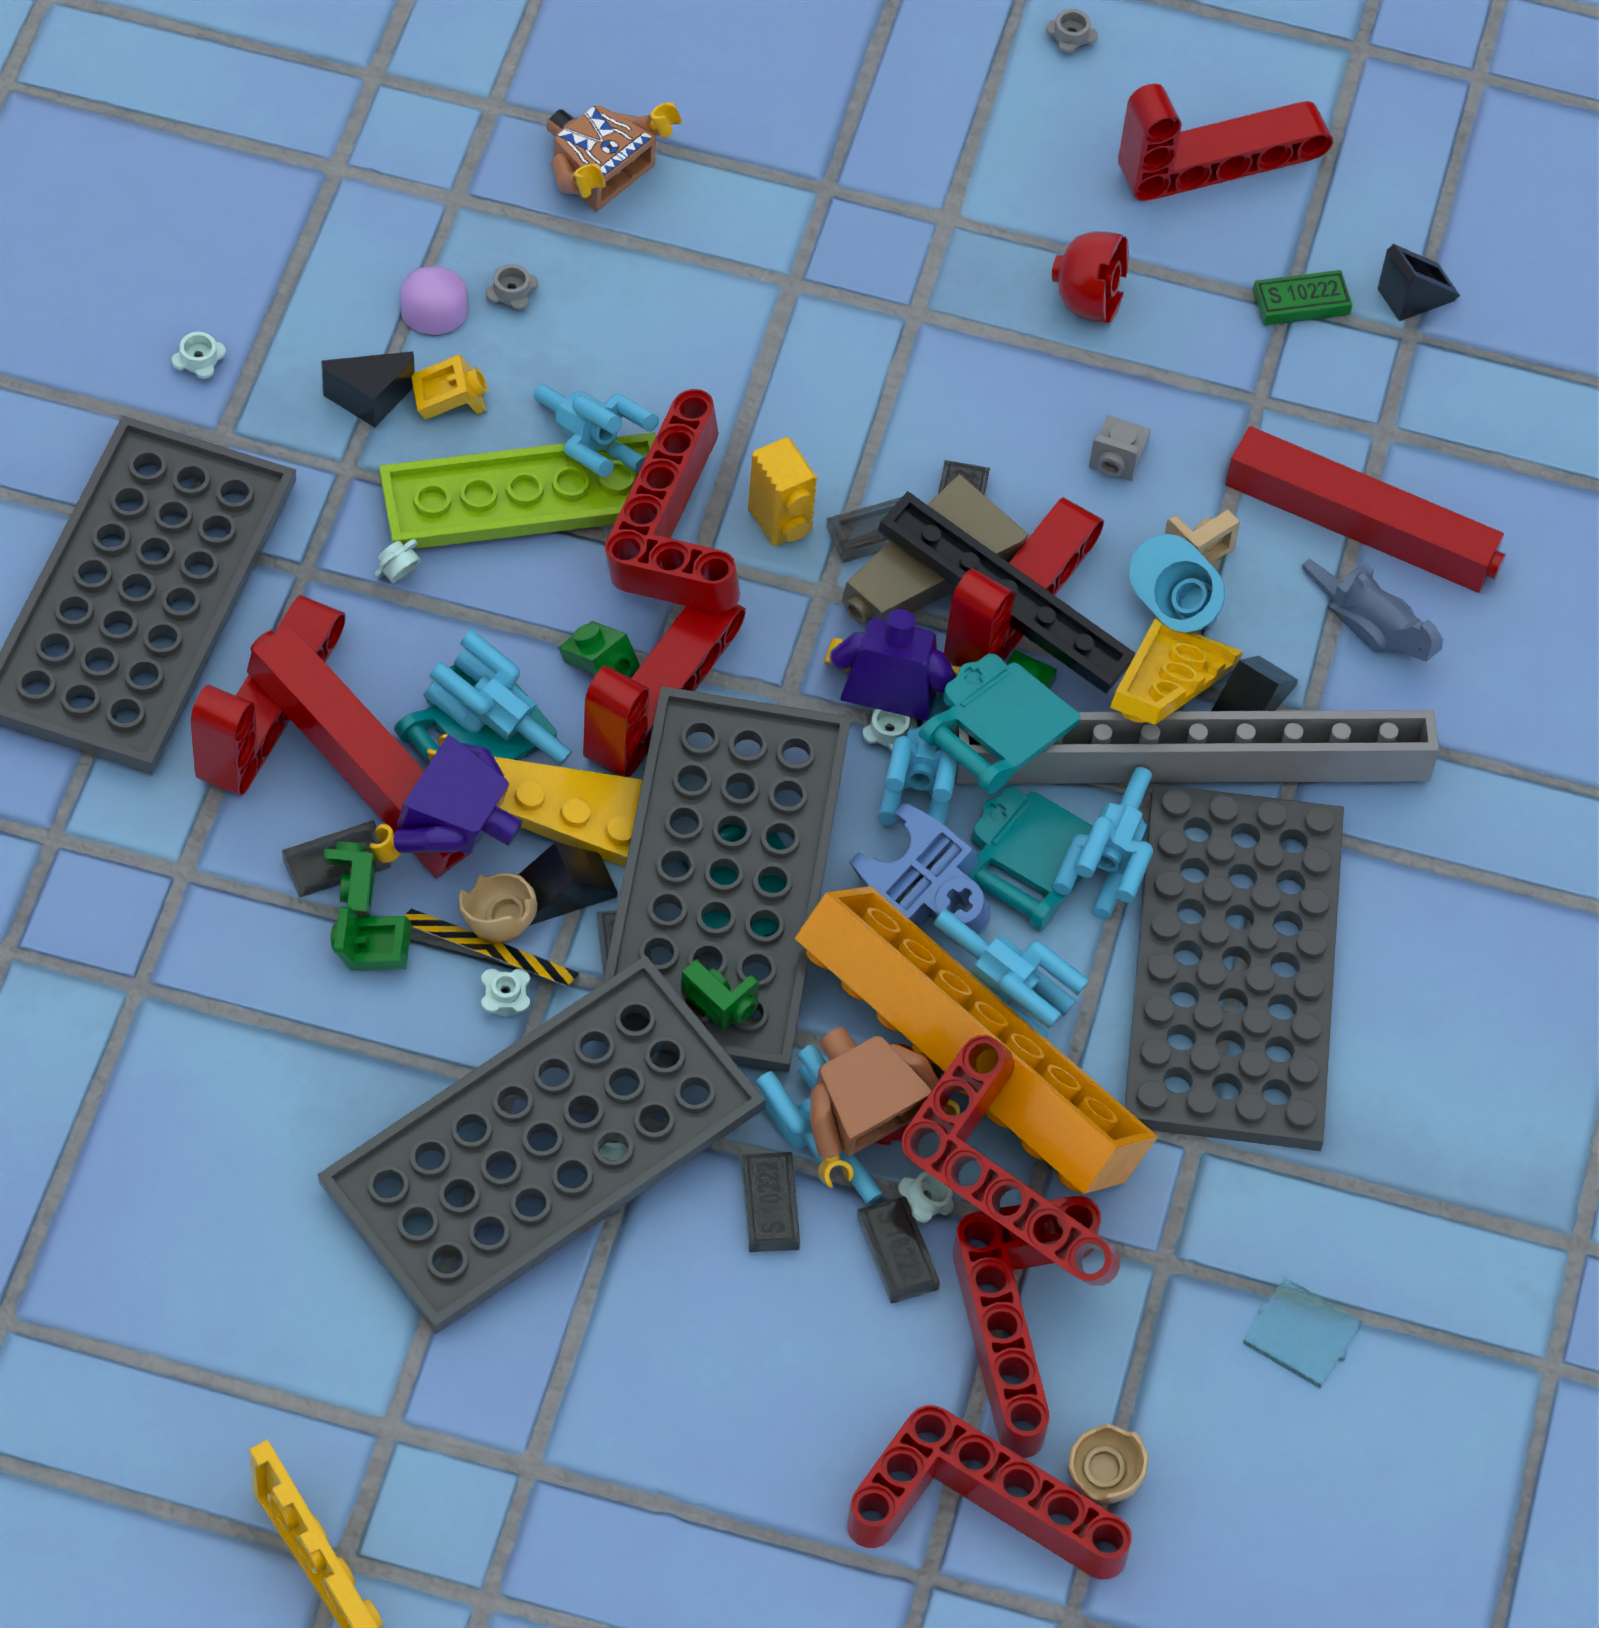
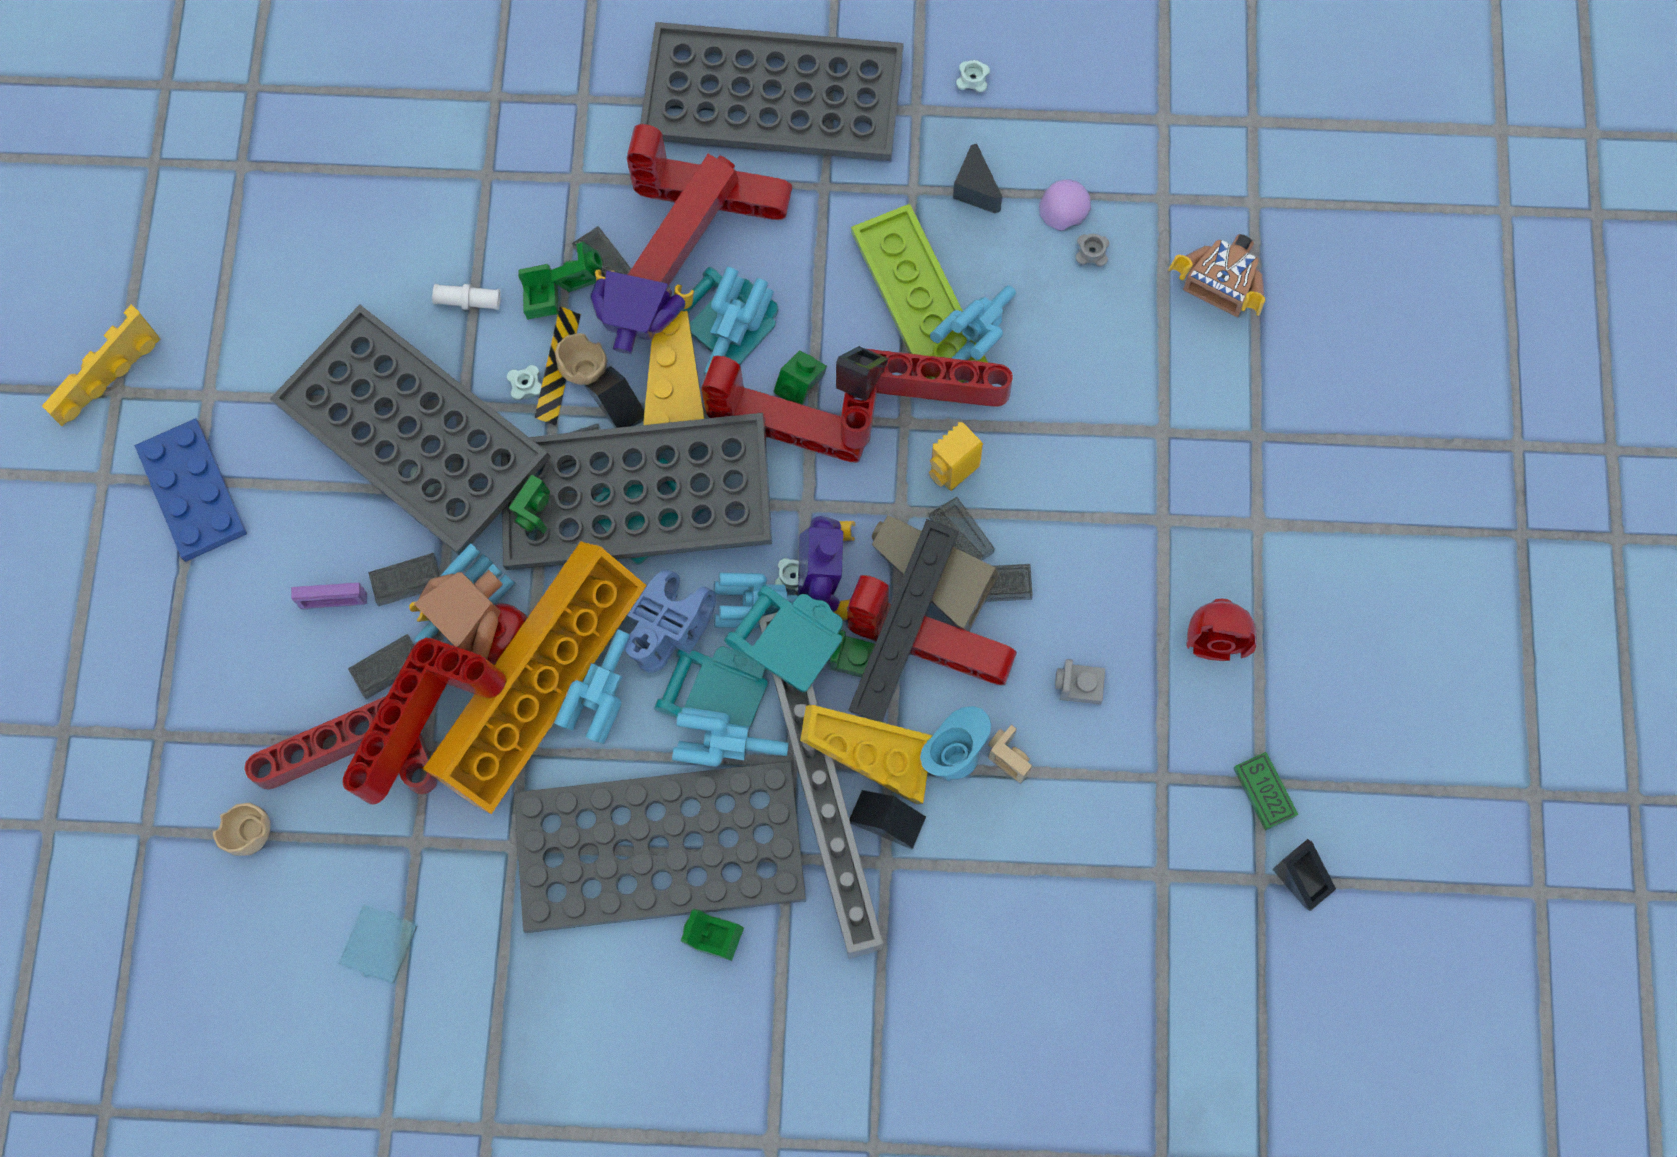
camera: 85 degrees right, 15 degrees up
(343, 1039) = (466, 296): none -> white pin
(397, 561) = (838, 235): light aqua plate -> none
(449, 386) = (991, 232): yellow bracket -> none
(545, 1471) = (190, 489): none -> blue plate
(651, 541) = (859, 371): none -> black slope
(775, 1298) = (329, 595): none -> medium lavender tile
(987, 1490) = (213, 758): red beam -> none
(1072, 30) = (1468, 565): light grey plate -> none
(1168, 161) = (1379, 700): red beam -> none
(1366, 509) = (1073, 871): red brick -> none
(1374, 917) = (711, 935): none -> green bracket
(1375, 615) = (982, 892): sand blue animal -> none

